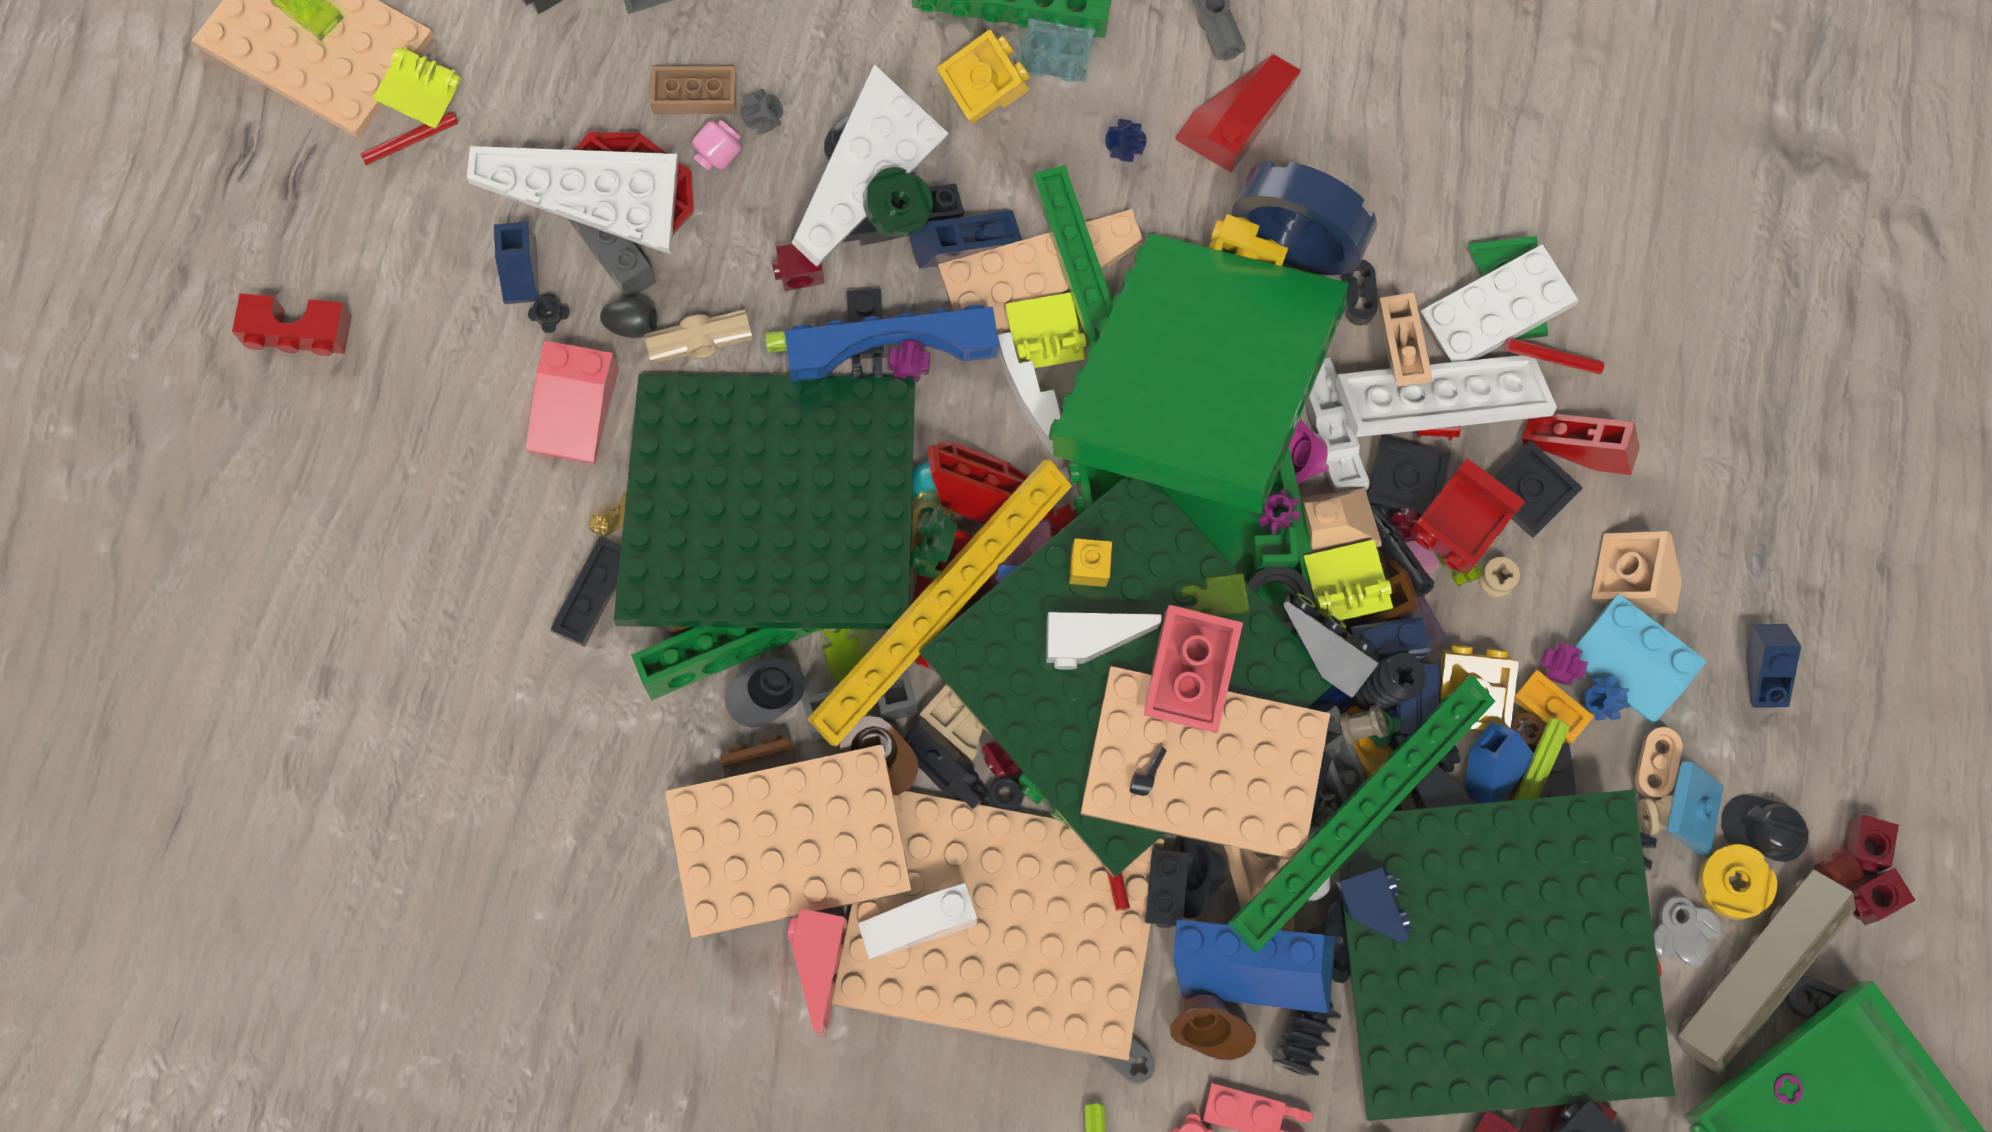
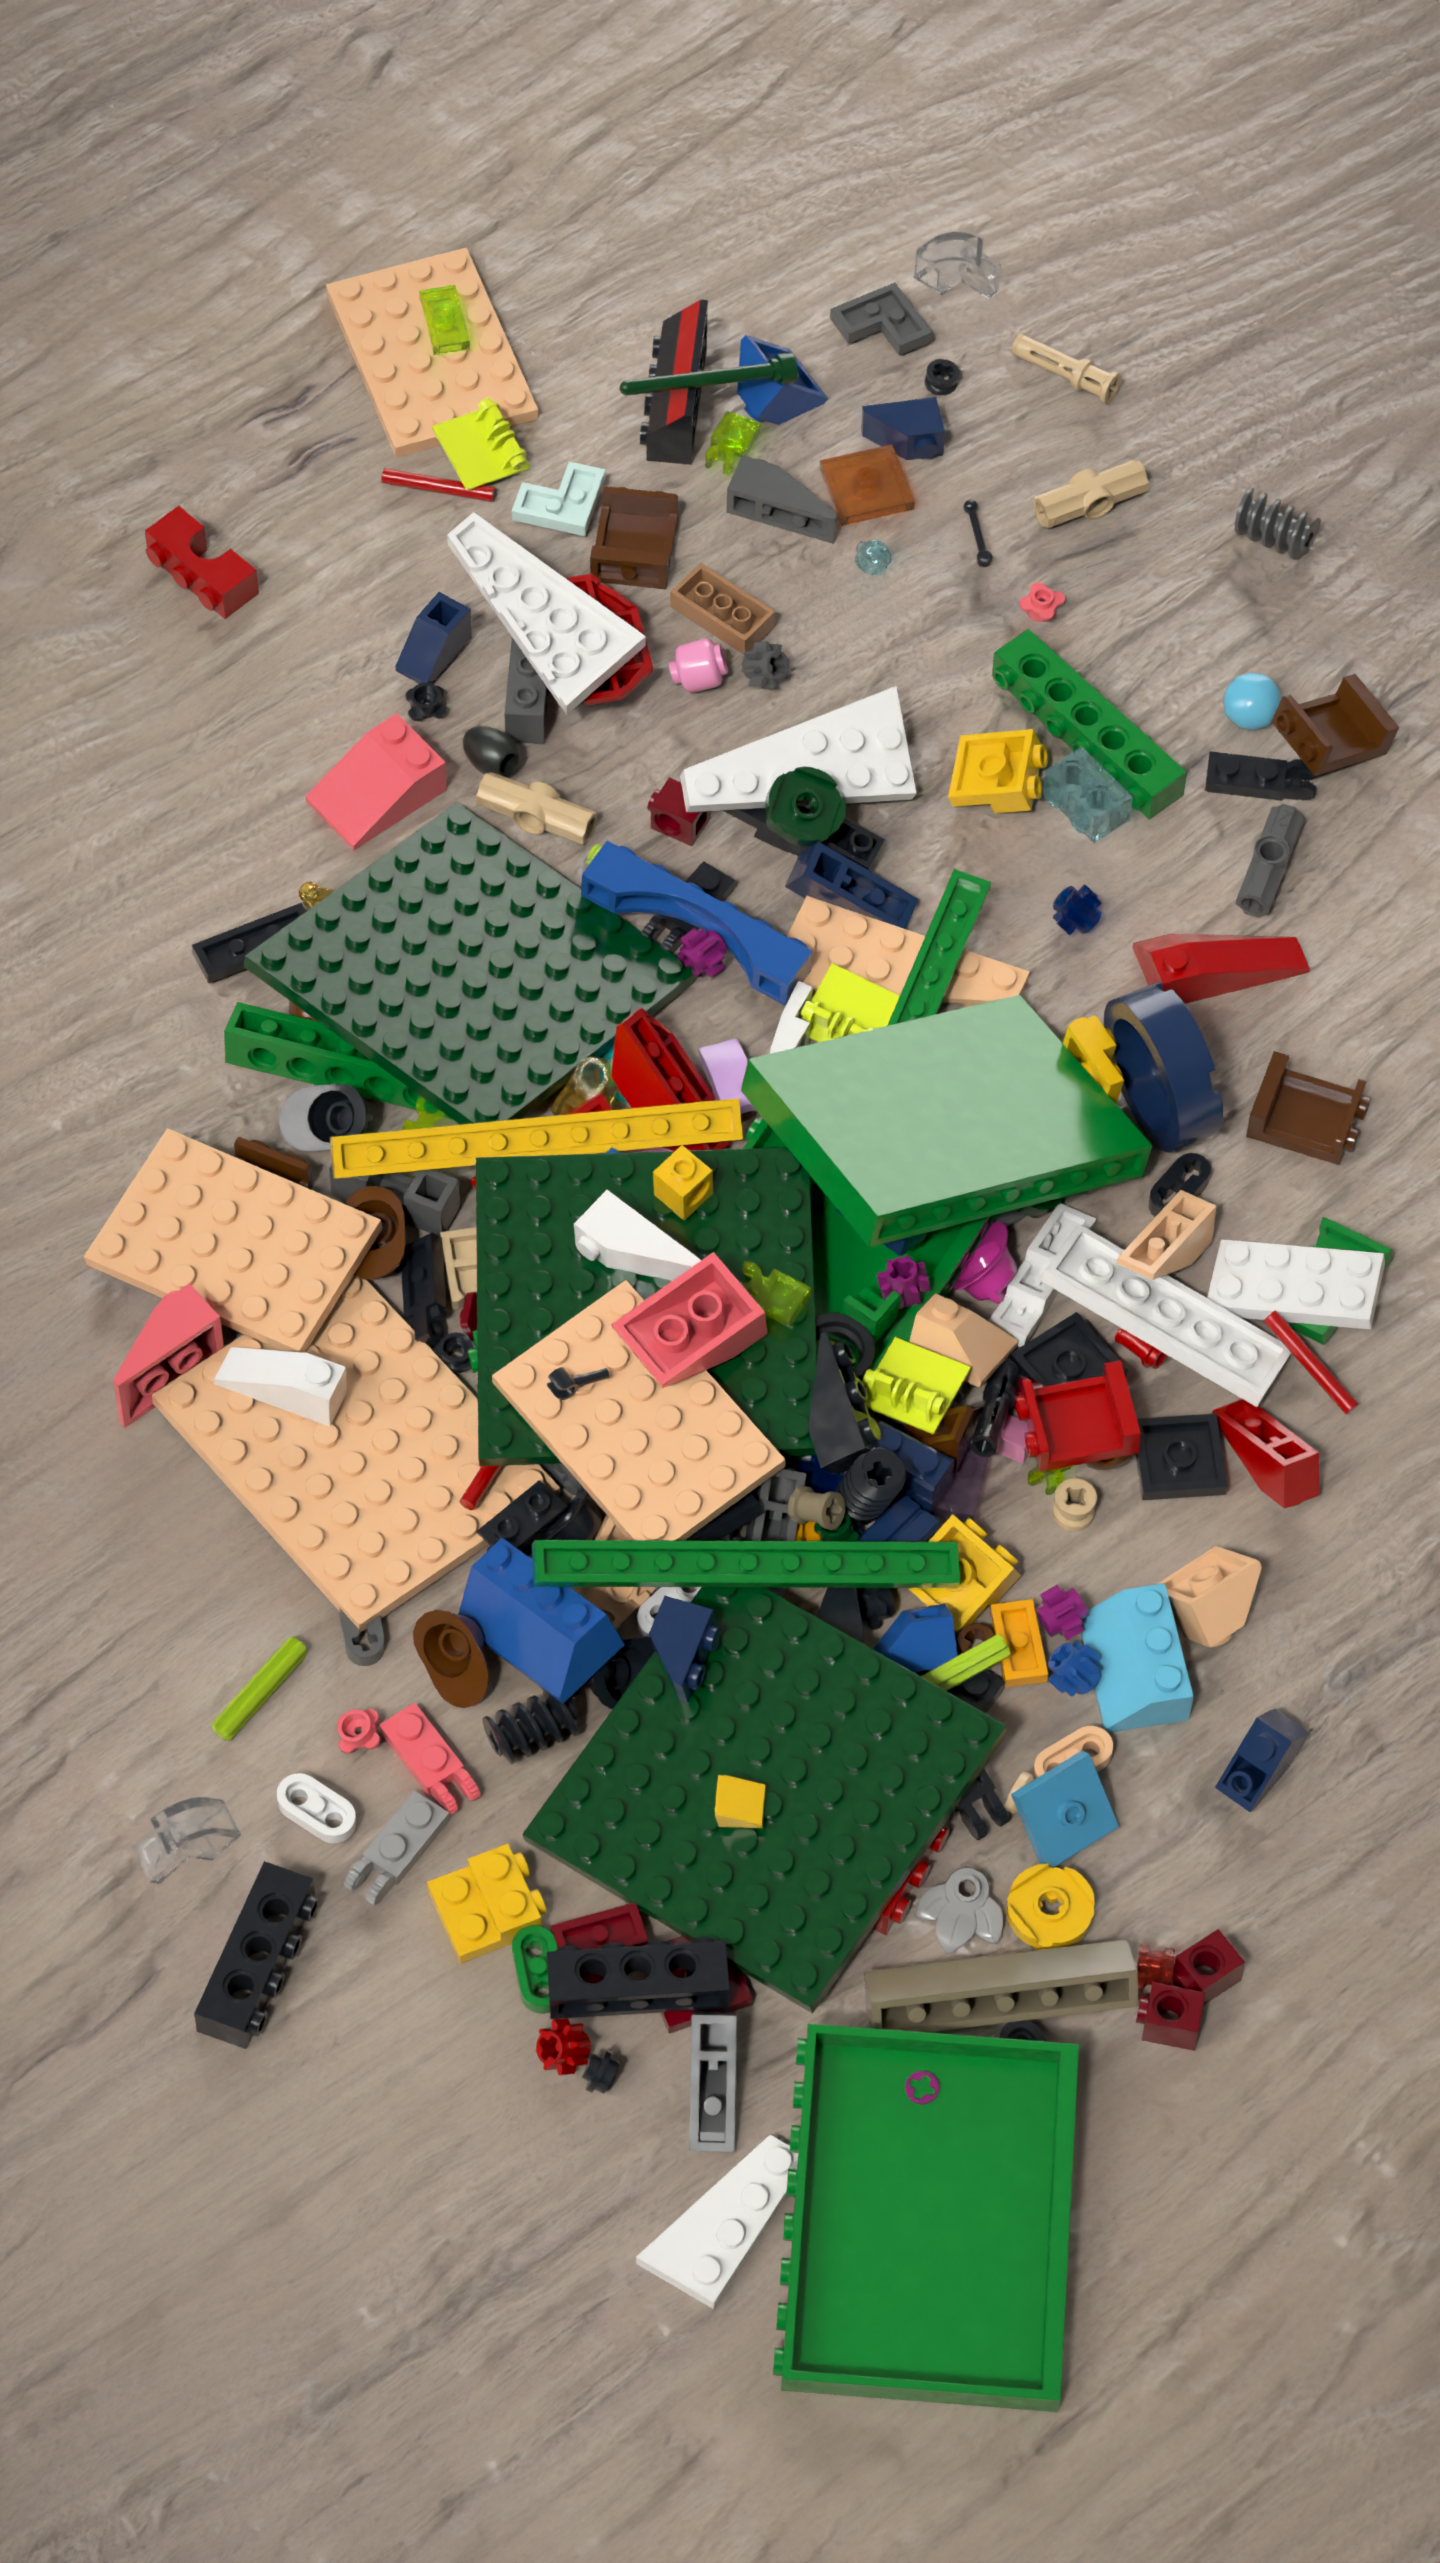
camera: 40 degrees right, 15 degrees down
(517, 91) = (562, 509): none -> light aqua plate
(585, 80) = (635, 537): none -> reddish brown panel
(935, 542) = (566, 1095): dark green plate -> none
(1008, 439) = (726, 1068): none -> lavender slope
(1394, 174) = (1306, 1112): none -> reddish brown panel
(1510, 988) = (739, 1803): none -> yellow slope
(1766, 826) = (1127, 1892): black piece -> none

